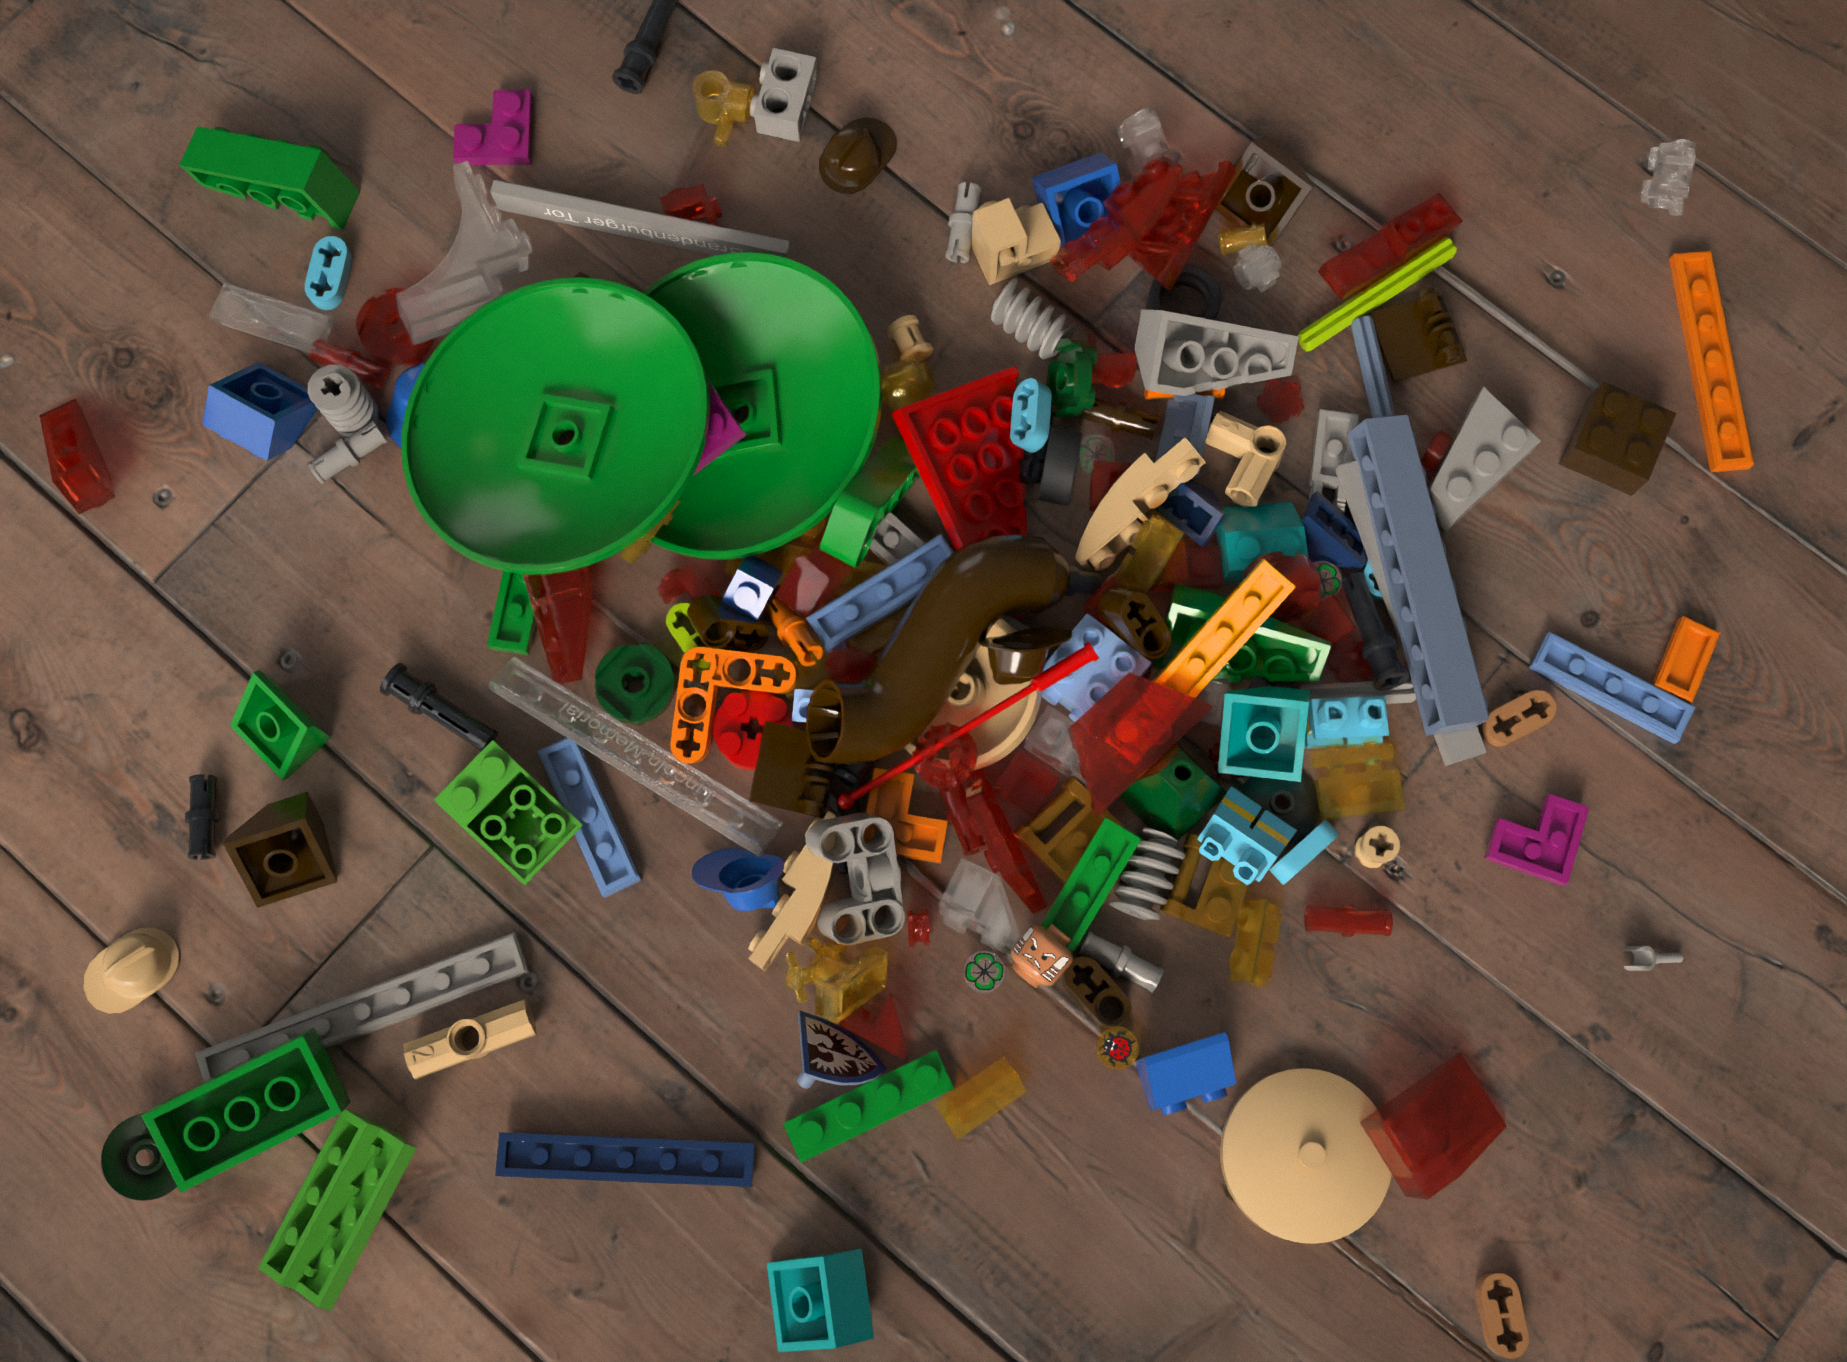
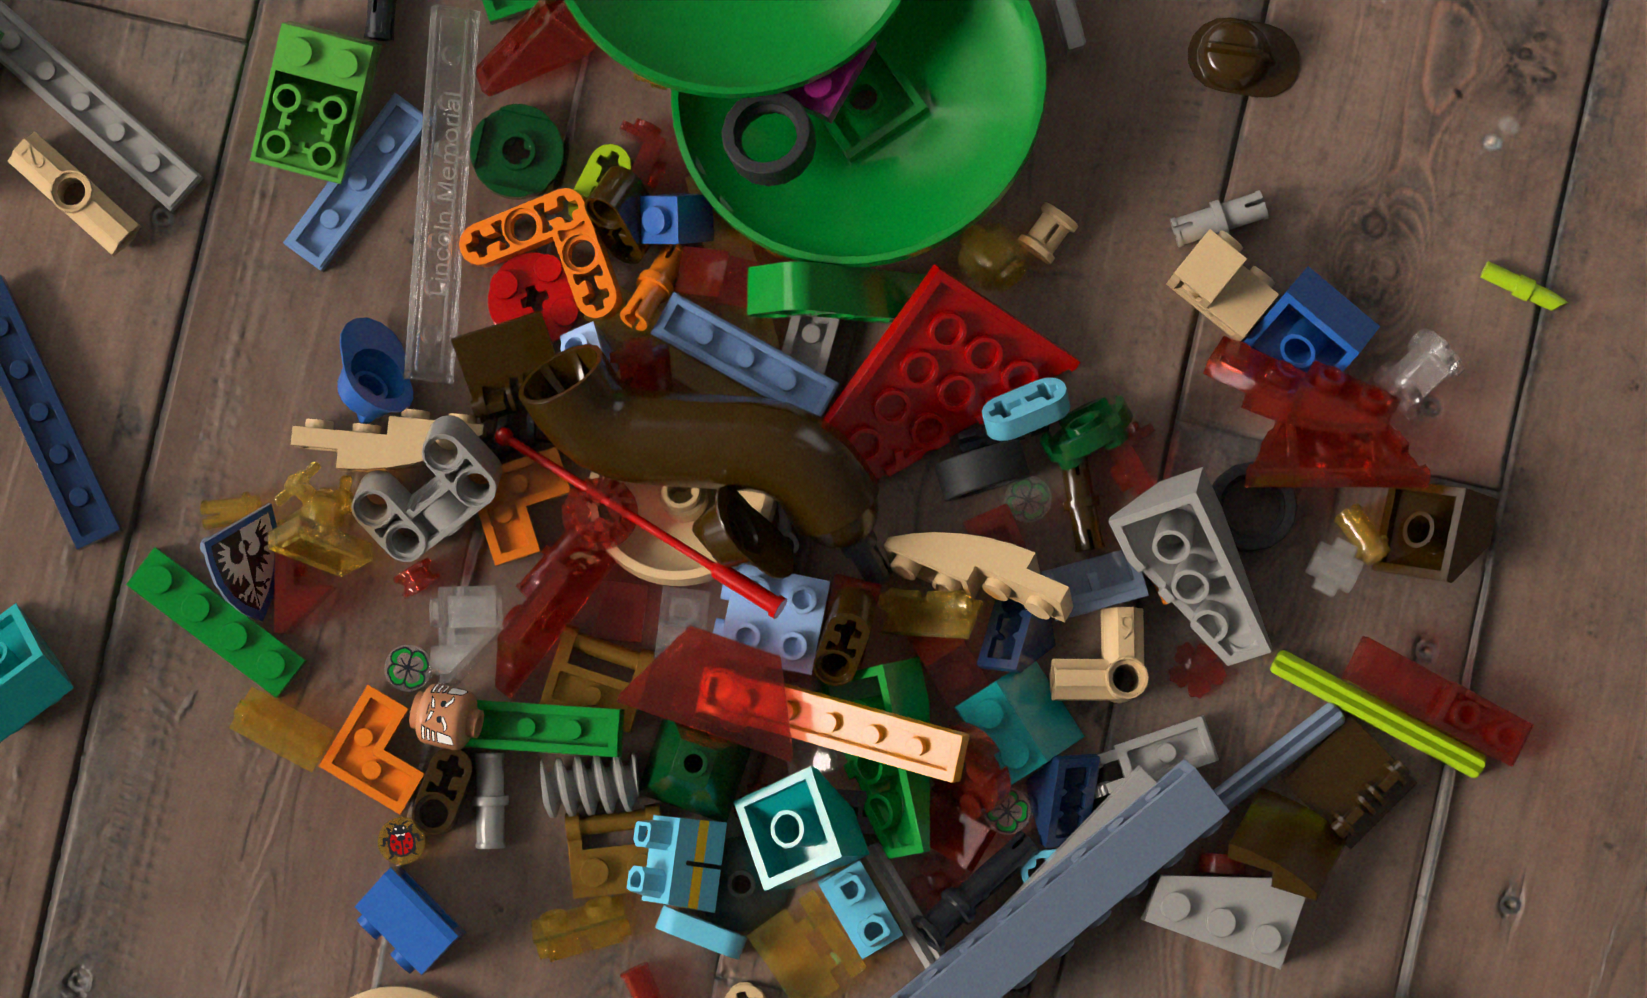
camera: 60 degrees right, 10 degrees up
(753, 498) = (786, 167): none -> black tyre
(788, 1045) = (230, 510): none -> clear yellow pin
(1030, 322) = (1138, 352): light grey piece -> none
(1035, 1044) = (361, 753): none -> orange plate
(1119, 56) = (1522, 287): none -> lime piece
(1446, 391) = (1289, 842): none -> dark brown slope

